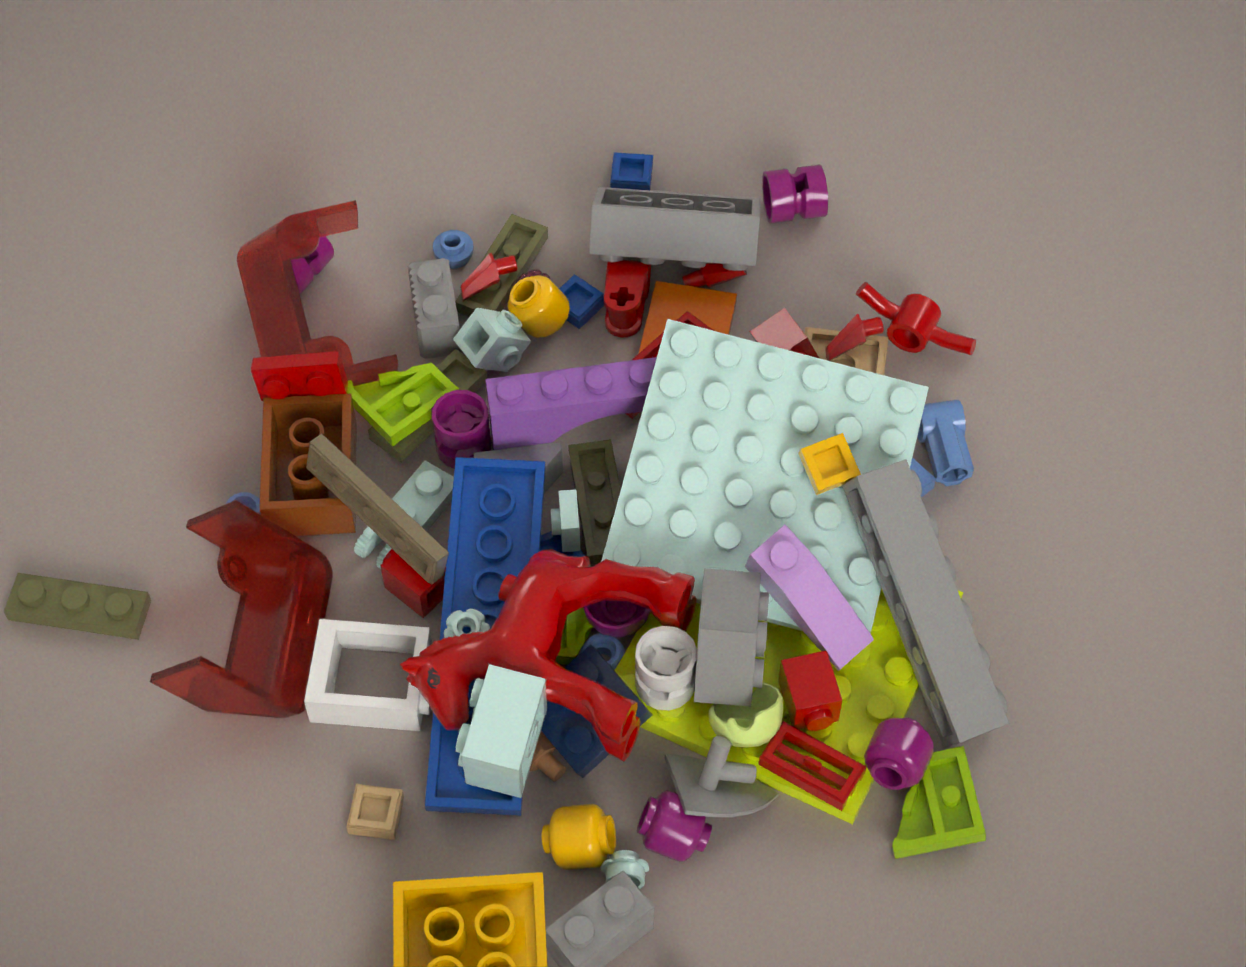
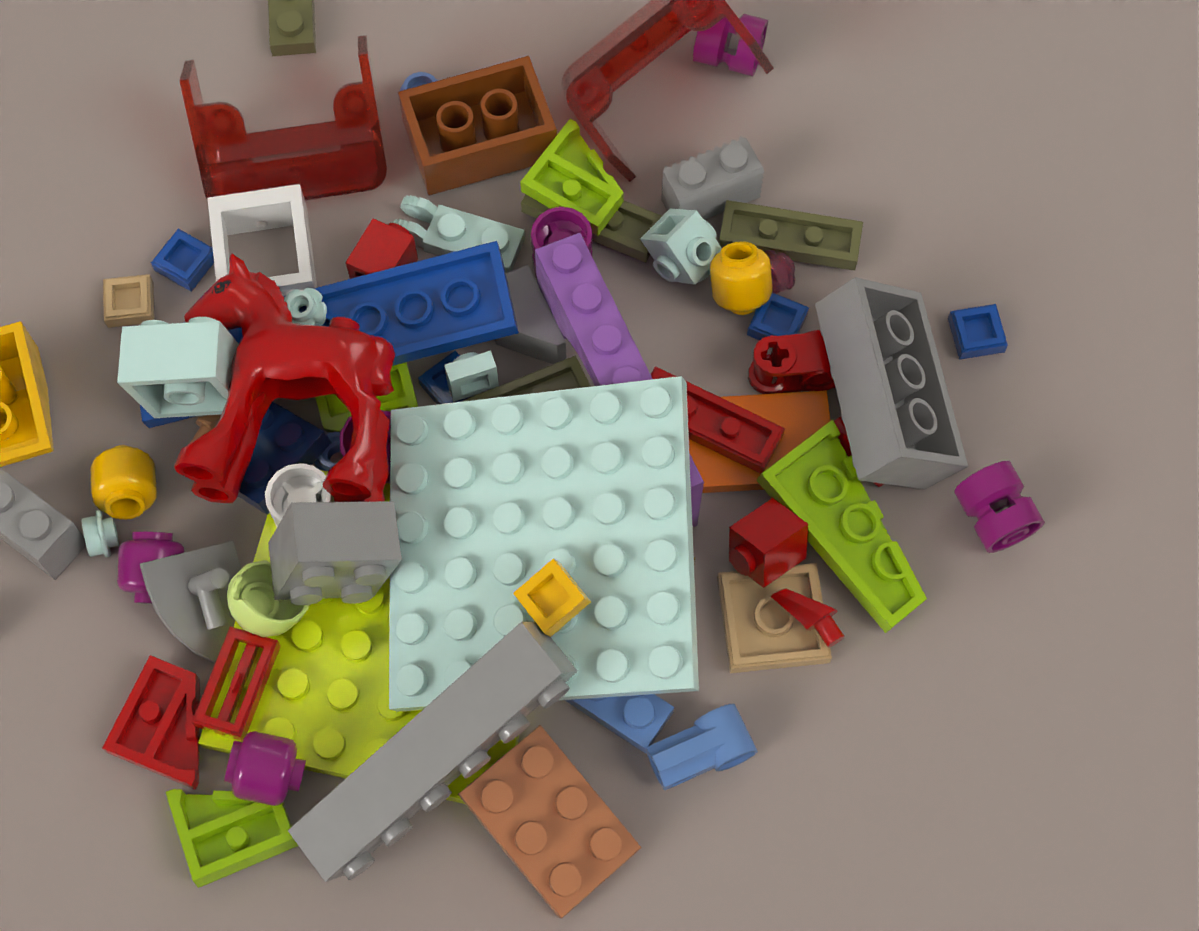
camera: 75 degrees right, 10 degrees up
(299, 375) = (556, 78): red plate -> none
(347, 753) = (184, 260): none -> blue tile
(376, 509) = (411, 185): dark tan tile -> none
(458, 255) = (800, 192): medium blue plate -> none
(487, 275) = (765, 217): red bar -> none
(744, 301) = (845, 525): none -> lime wing
(809, 596) = (402, 620): lavender slope -> none
(810, 691) = (311, 659): red brick -> none
(827, 845) = (157, 723): none -> red wing
(914, 322) = (857, 682): red piece -> none
(997, 554) = (549, 821): none -> nougat plate

